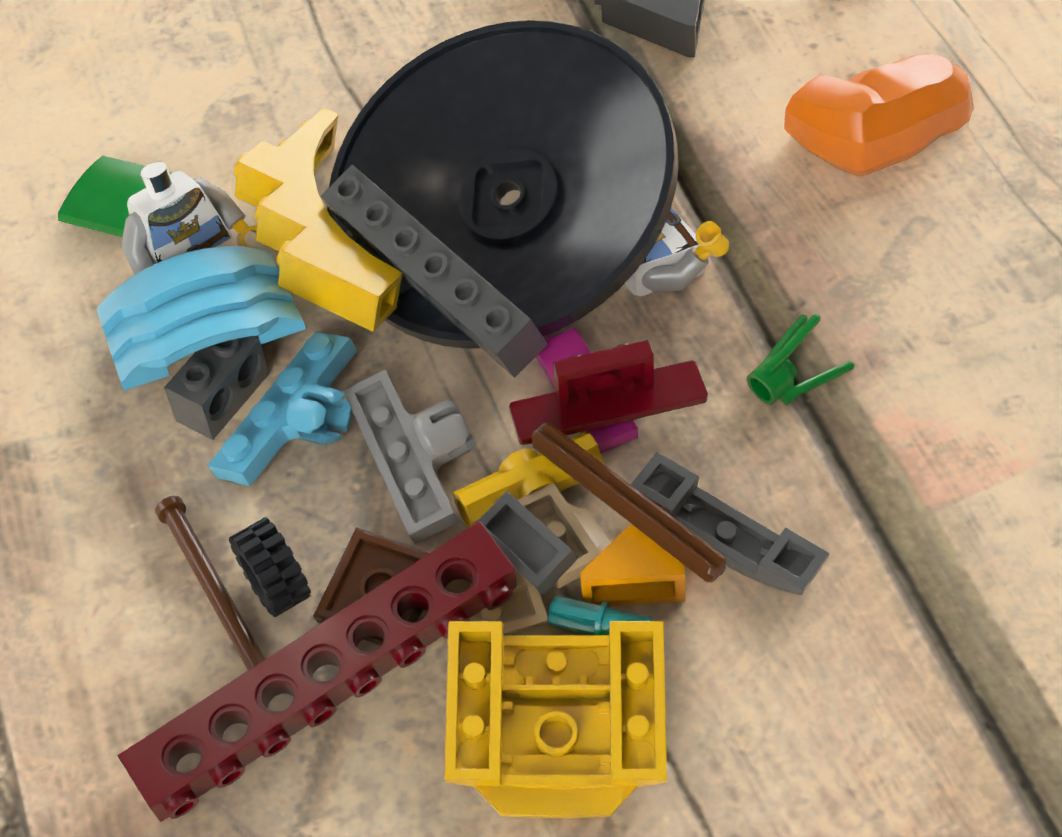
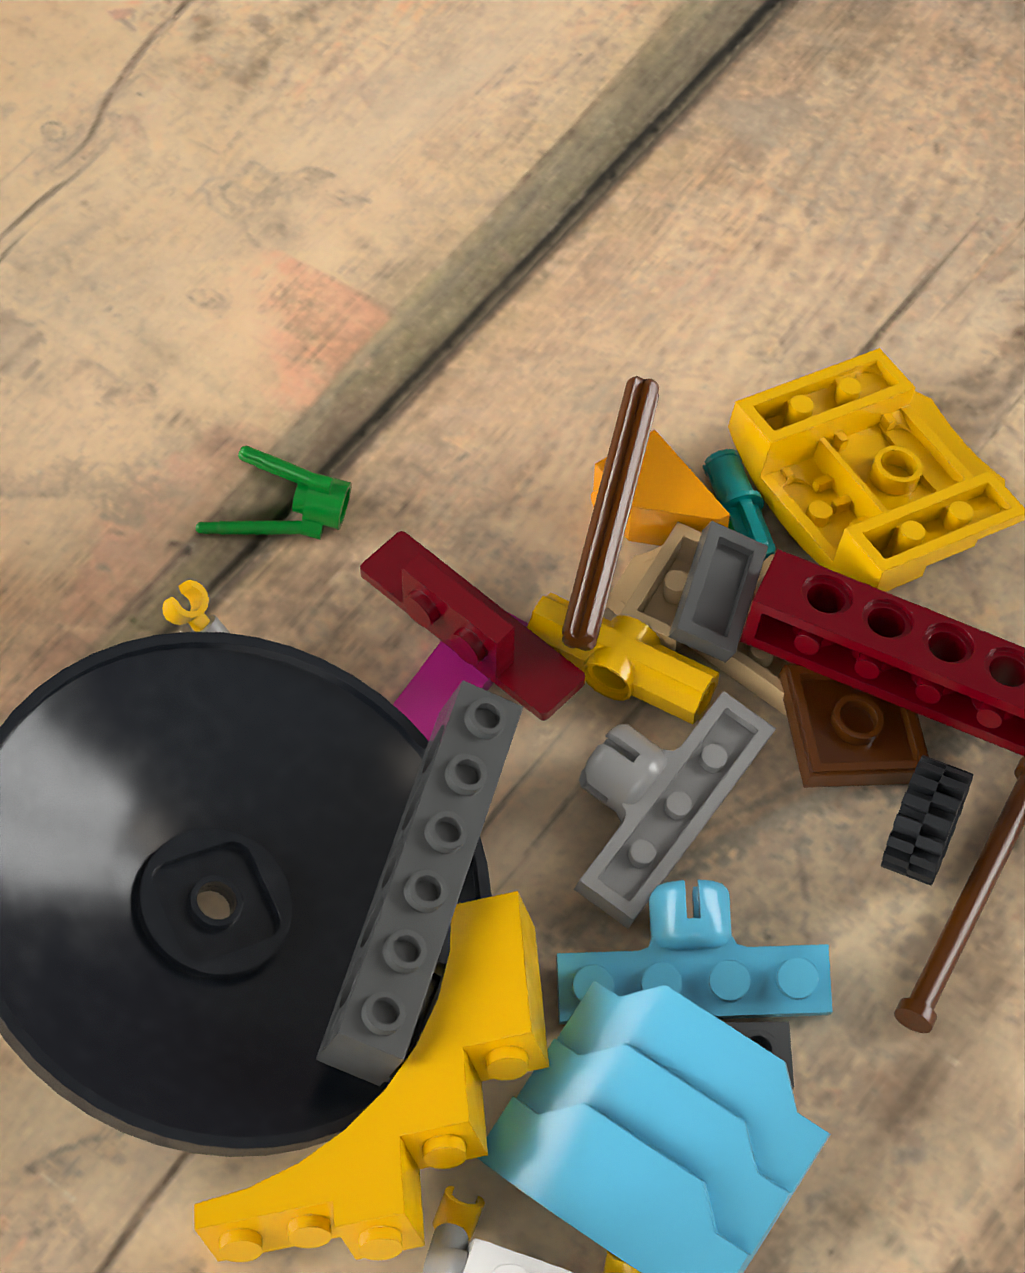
camera: 130 degrees left, 5 degrees up
(749, 548) = (553, 442): dark grey slope -> none

